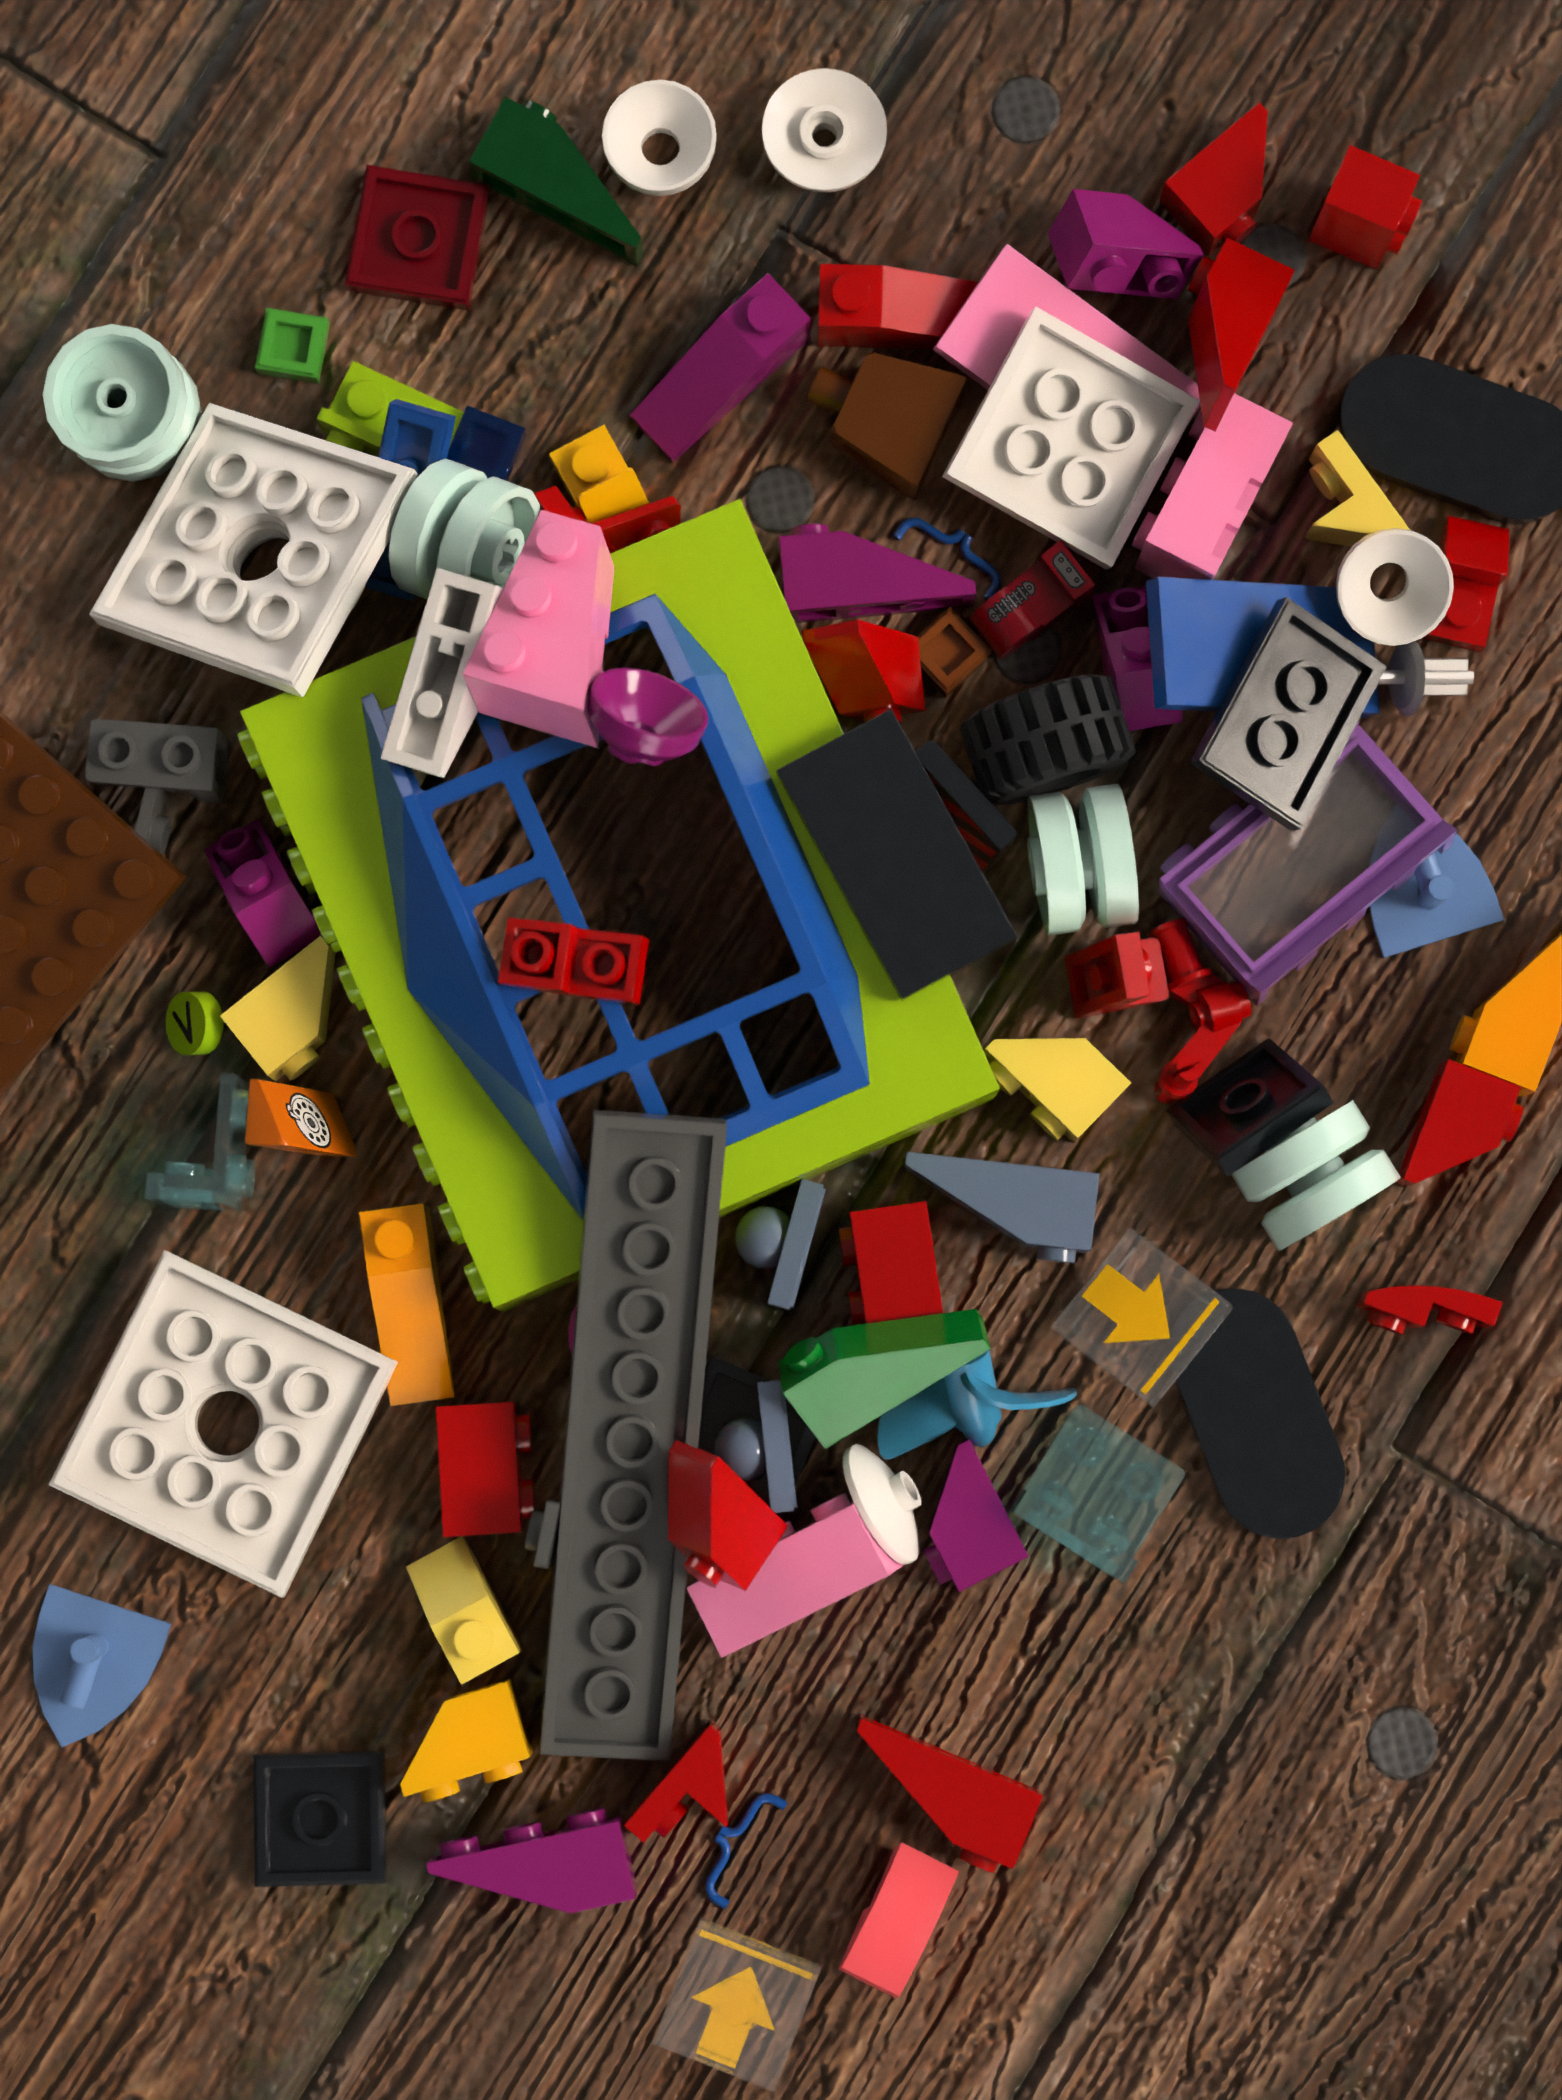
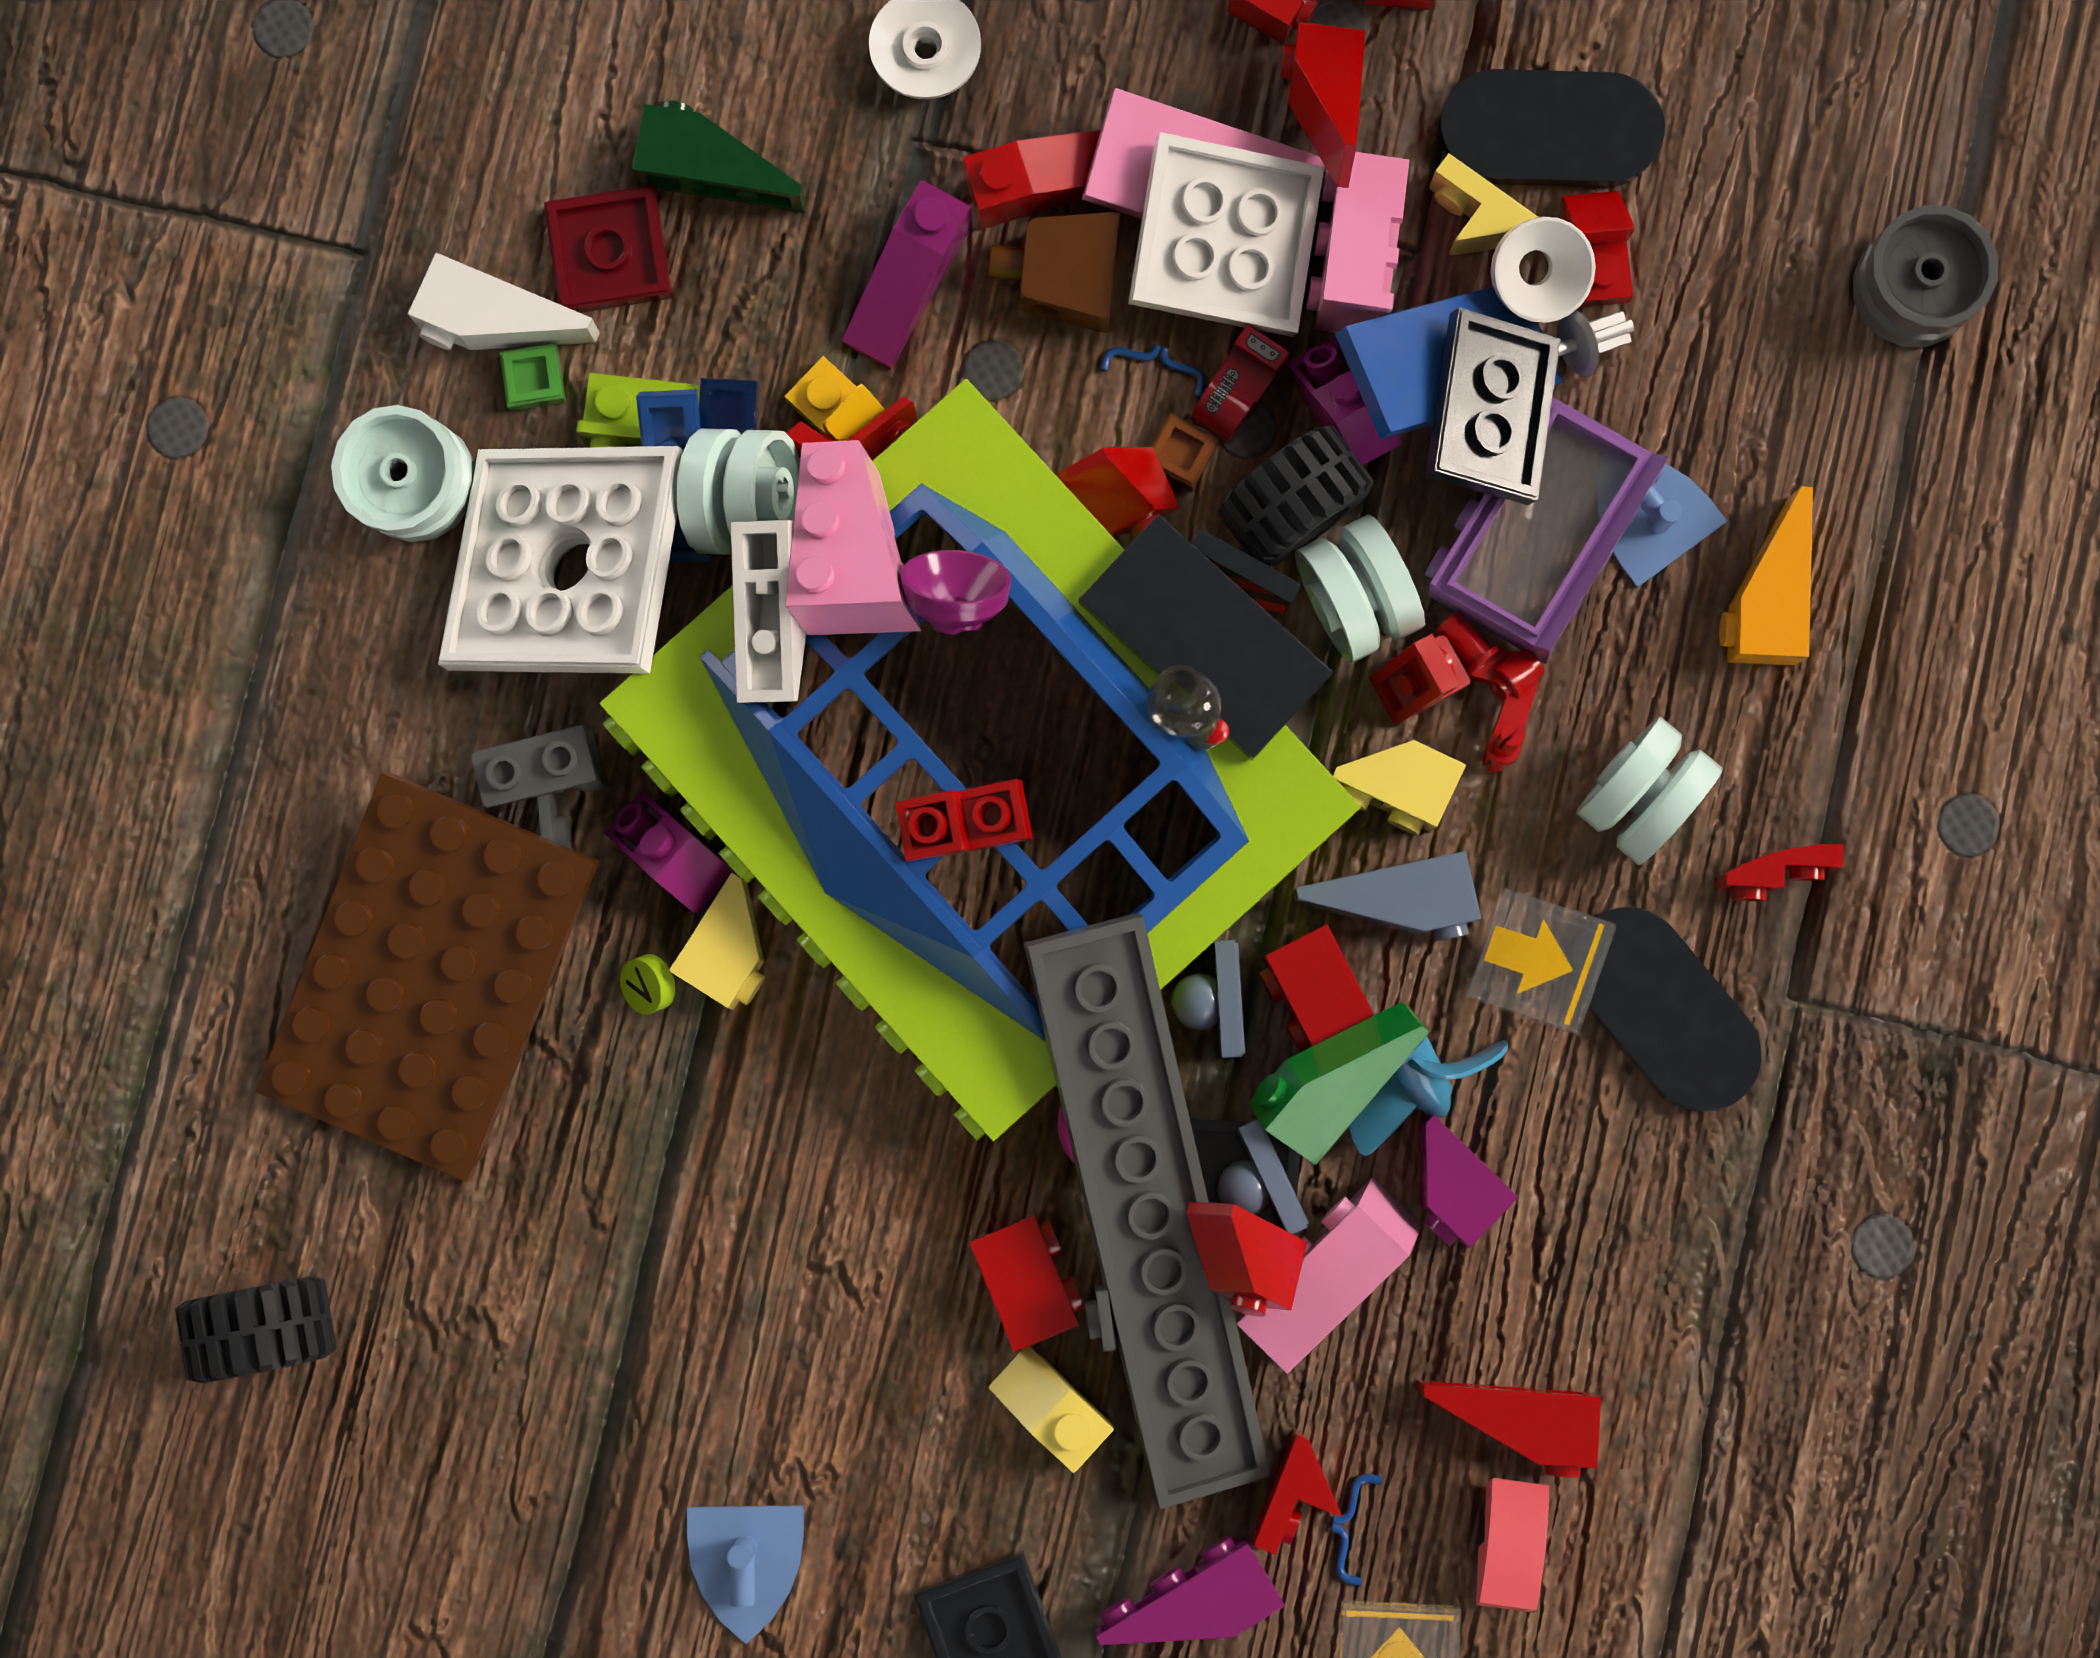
camera: 20 degrees left, 0 degrees up
(141, 1440) = (742, 1380): white piece -> none
(232, 1174) = (695, 1122): clear light blue bracket -> none
(267, 263) = (488, 313): none -> white slope
(296, 1120) = (765, 1038): orange slope -> none
(408, 1302) = (913, 1162): light orange slope -> none
(468, 1737) = (1095, 1514): yellow slope -> none
(655, 109) = (781, 71): white piece -> none
(849, 920) = (1187, 707): none -> clear smoke animal
(852, 577) = (1082, 414): magenta slope -> none
(884, 1502) = (1380, 1193): white dish -> none
(1098, 1492) = (1555, 1122): clear light blue bracket -> none
(1120, 247) = (1210, 59): magenta slope -> none
(1249, 1106) = (1572, 751): black tile -> none
(1459, 1120) = (1751, 703): red slope -> none

